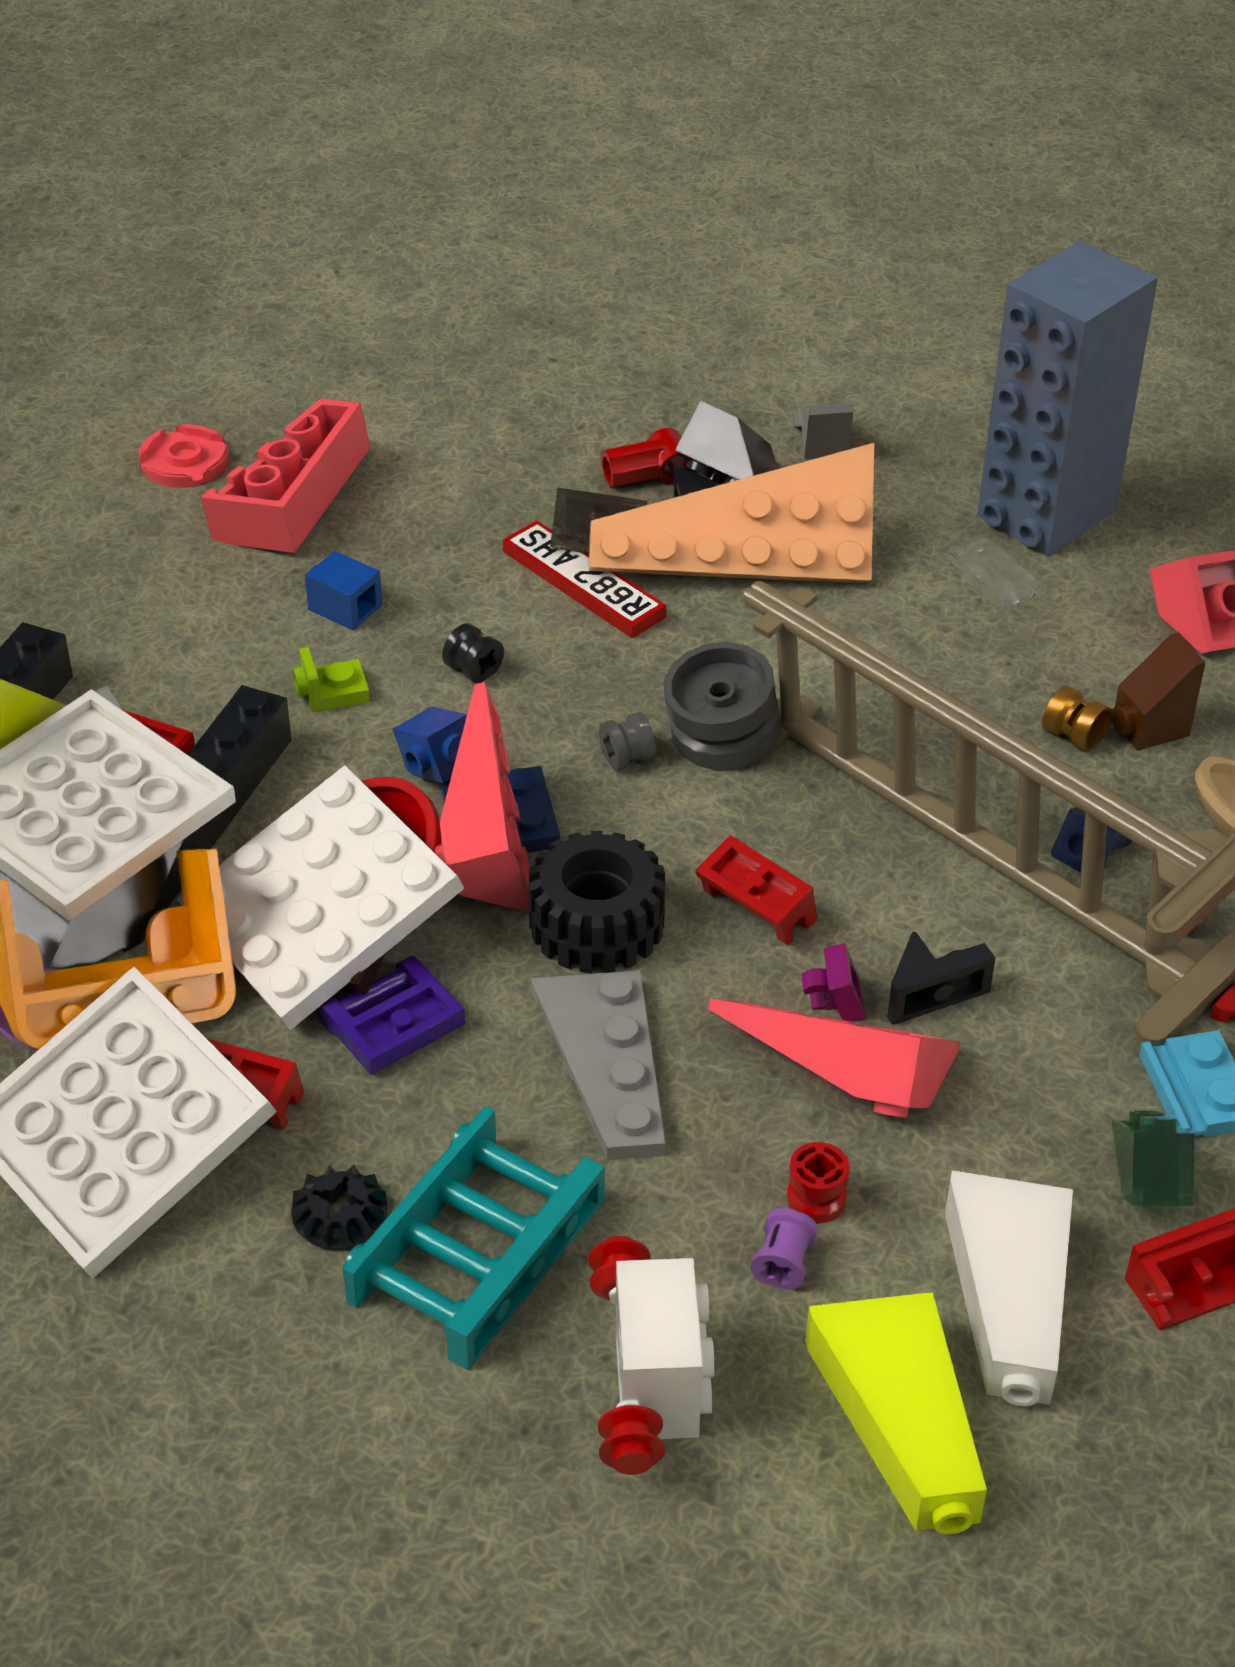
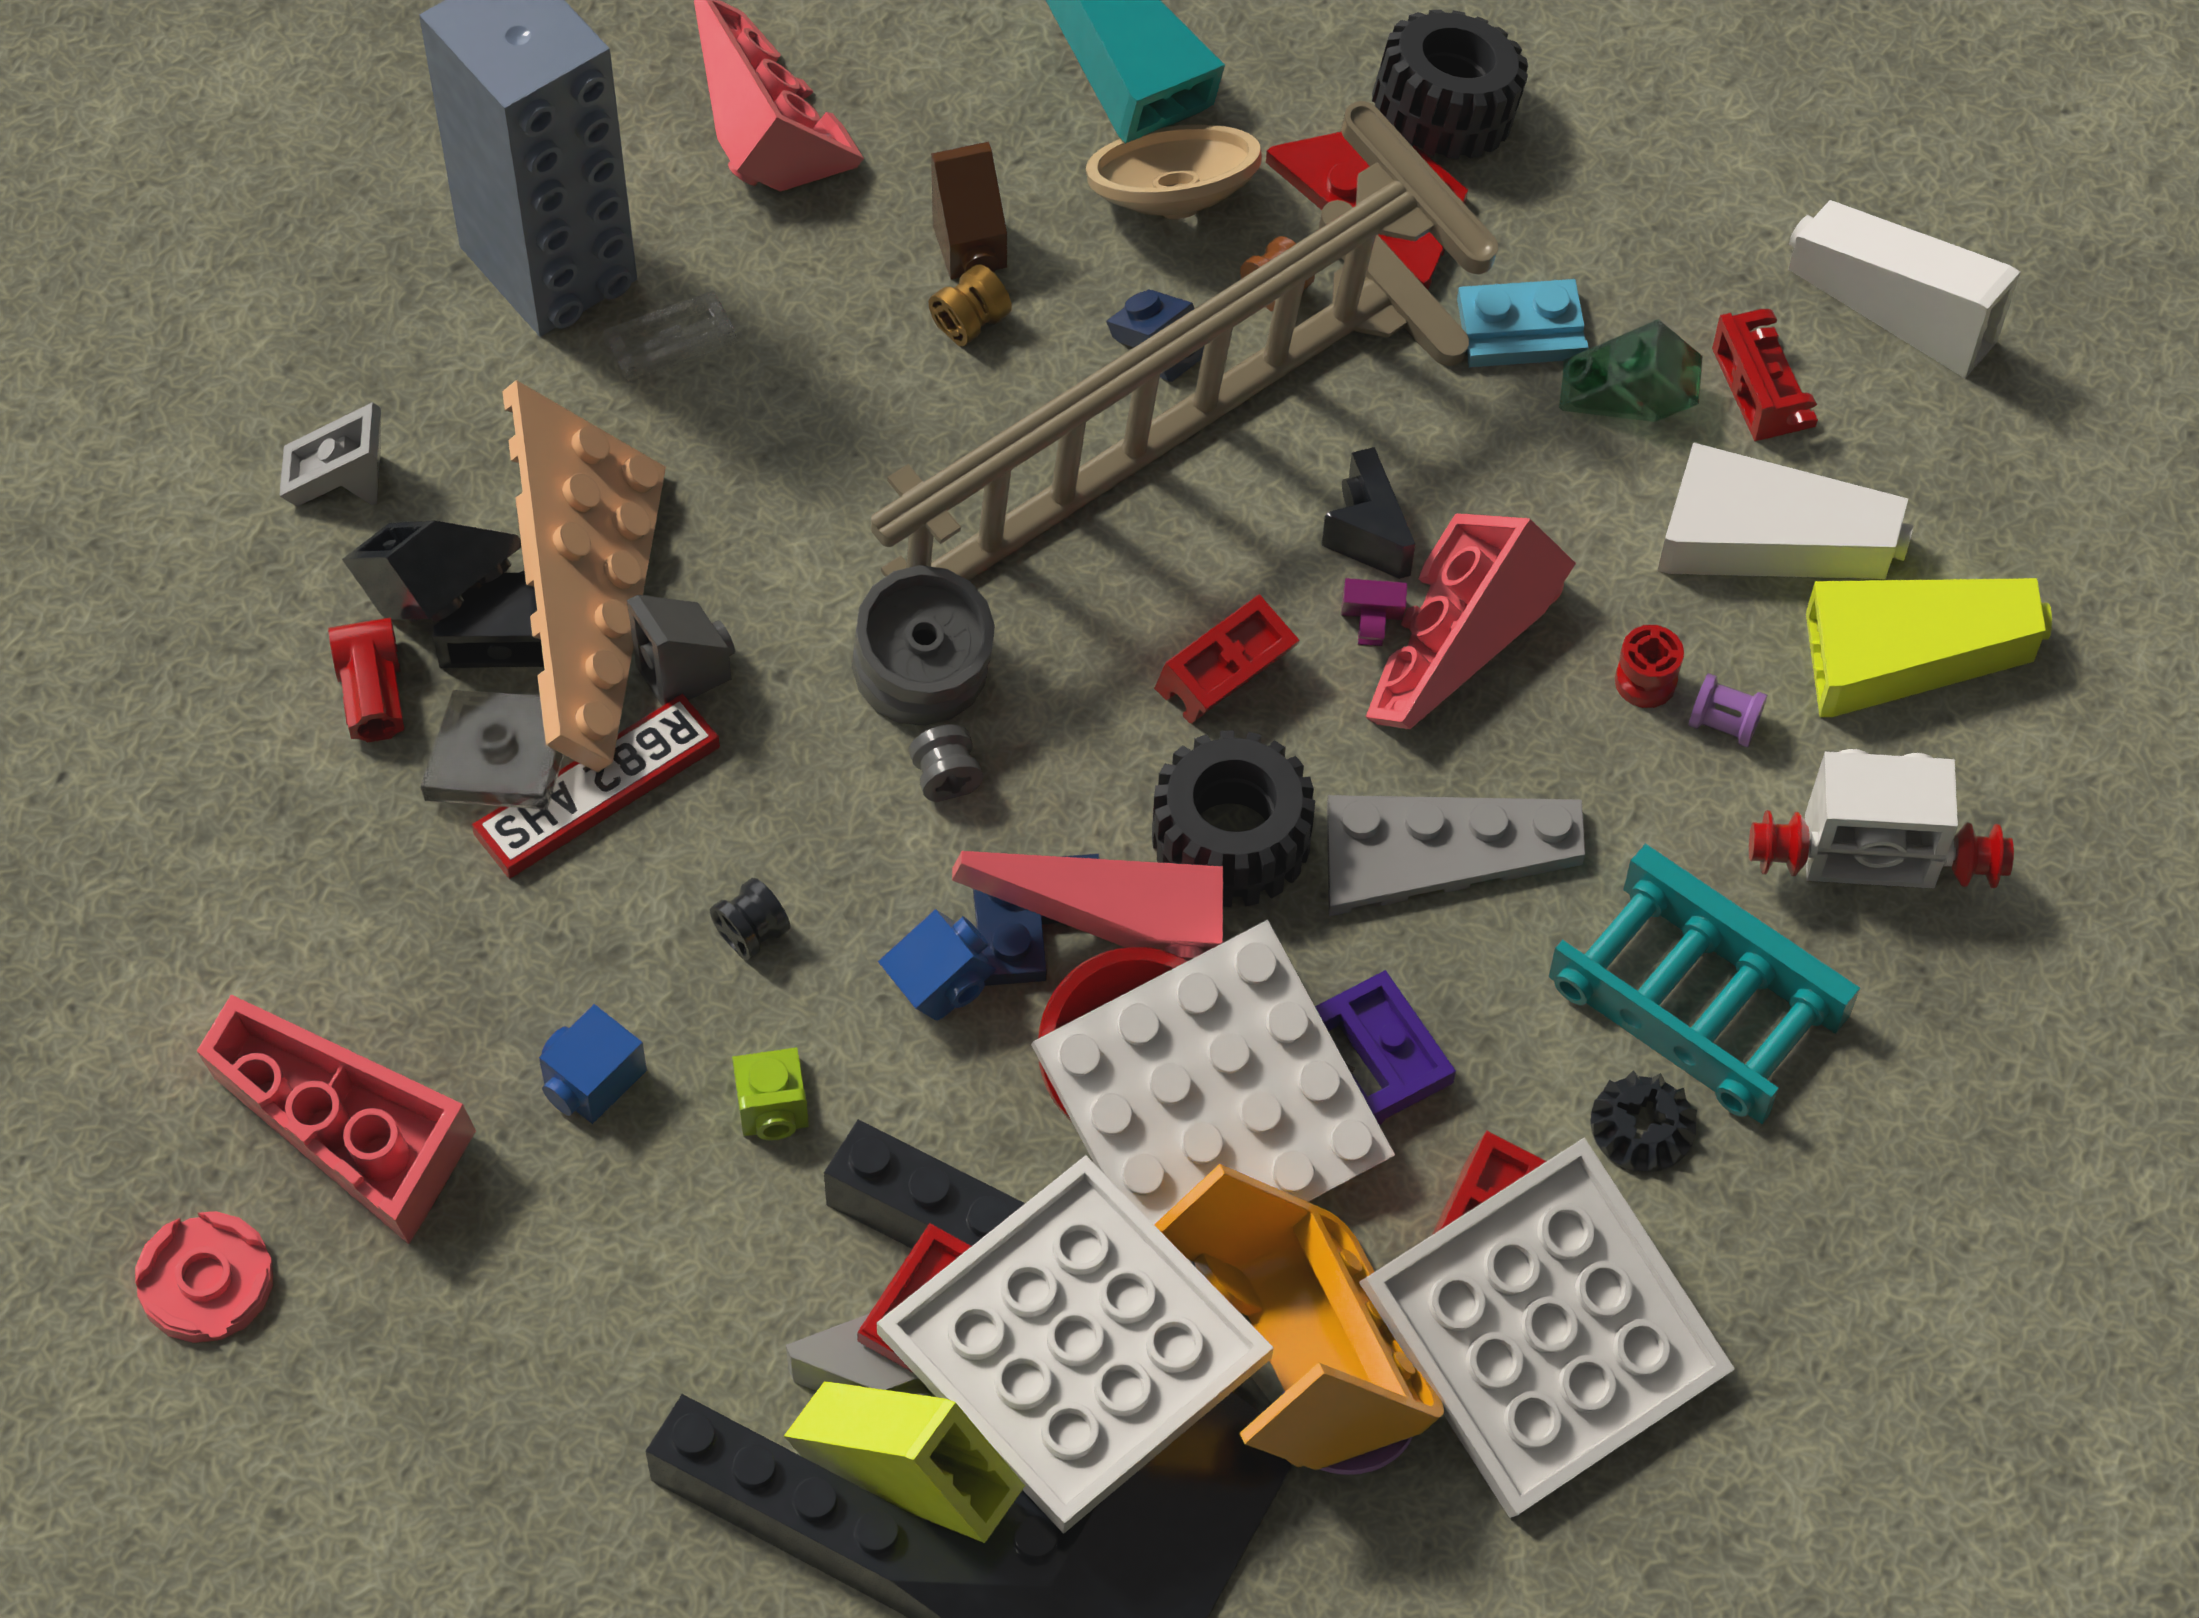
camera: 85 degrees left, 15 degrees up
(693, 580) = (678, 647): none -> dark grey slope

